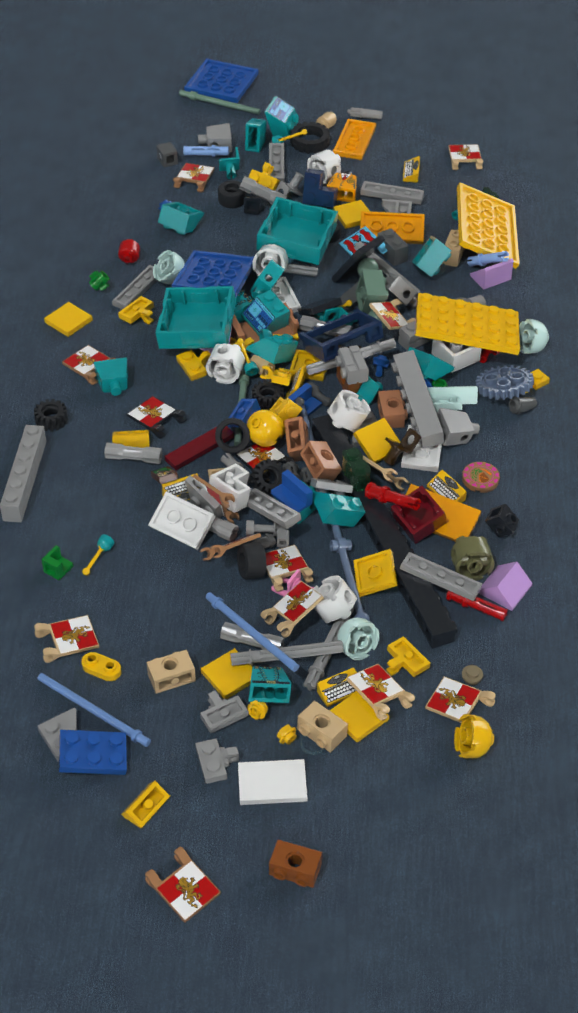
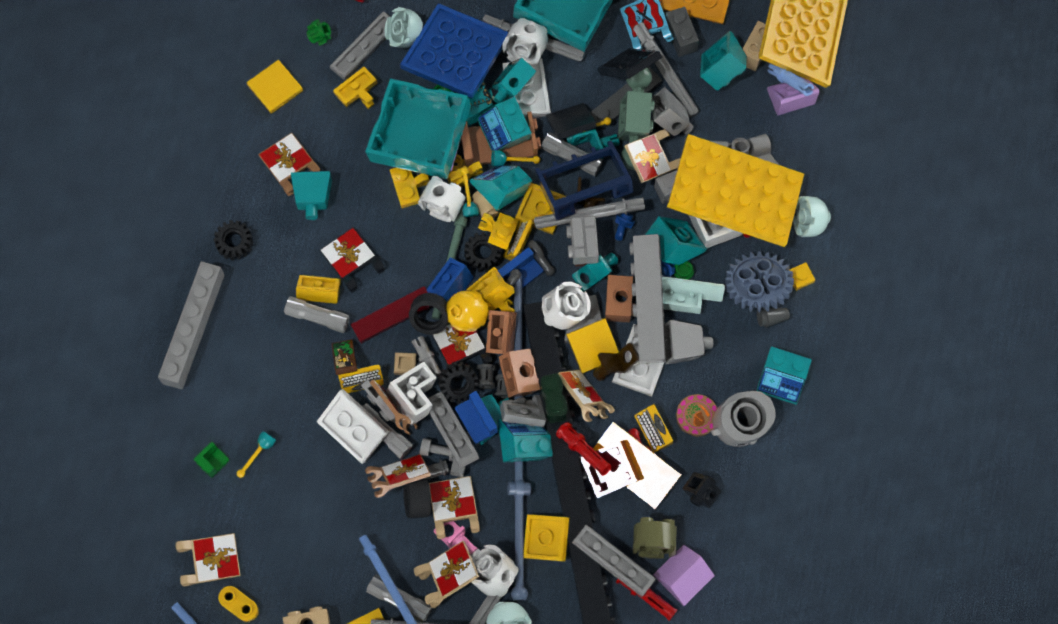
camera: 10 degrees right, 25 degrees up
(522, 464) = (758, 413): none -> light grey piece
(545, 438) = (783, 375): none -> slope

